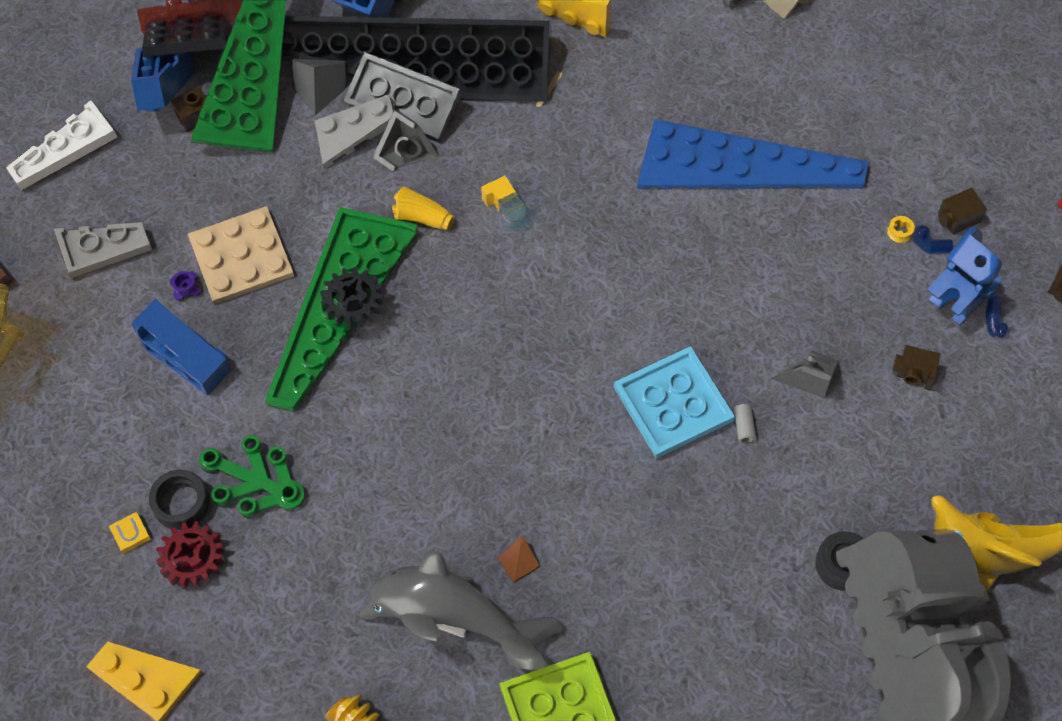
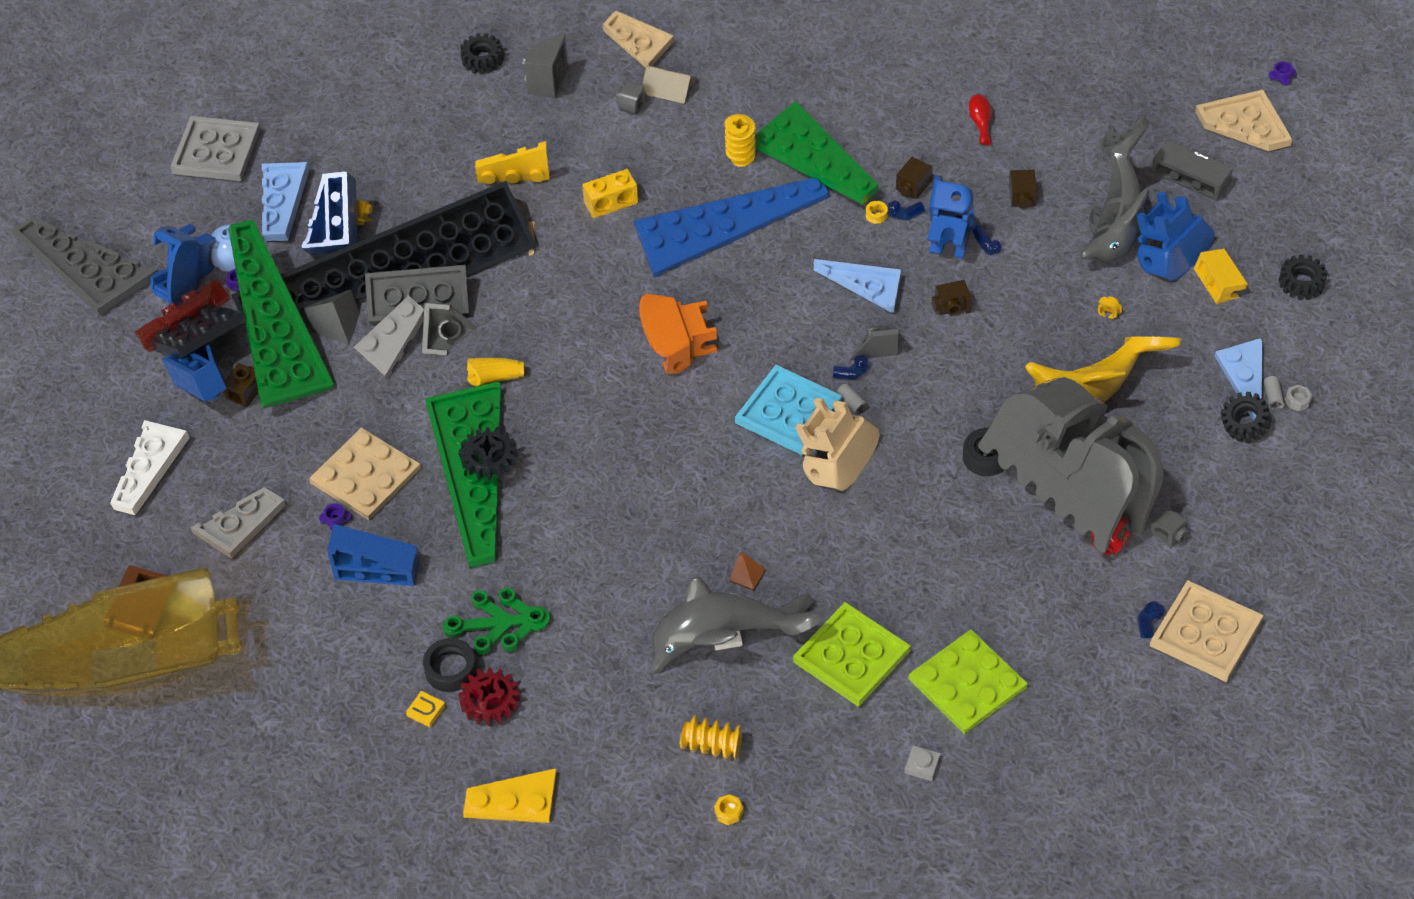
camera: 30 degrees left, 10 degrees down
(507, 201) = (559, 333): leg -> none
(611, 255) = (676, 330): none -> orange piece
(648, 80) = (610, 193): none -> yellow brick
(700, 467) = (845, 437): none -> tan piece
(768, 393) = (852, 372): none -> clear blue arm
(808, 84) = (740, 139): none -> yellow piece
(845, 304) = (871, 282): none -> light blue wing
(874, 127) = (808, 148): none -> green wing

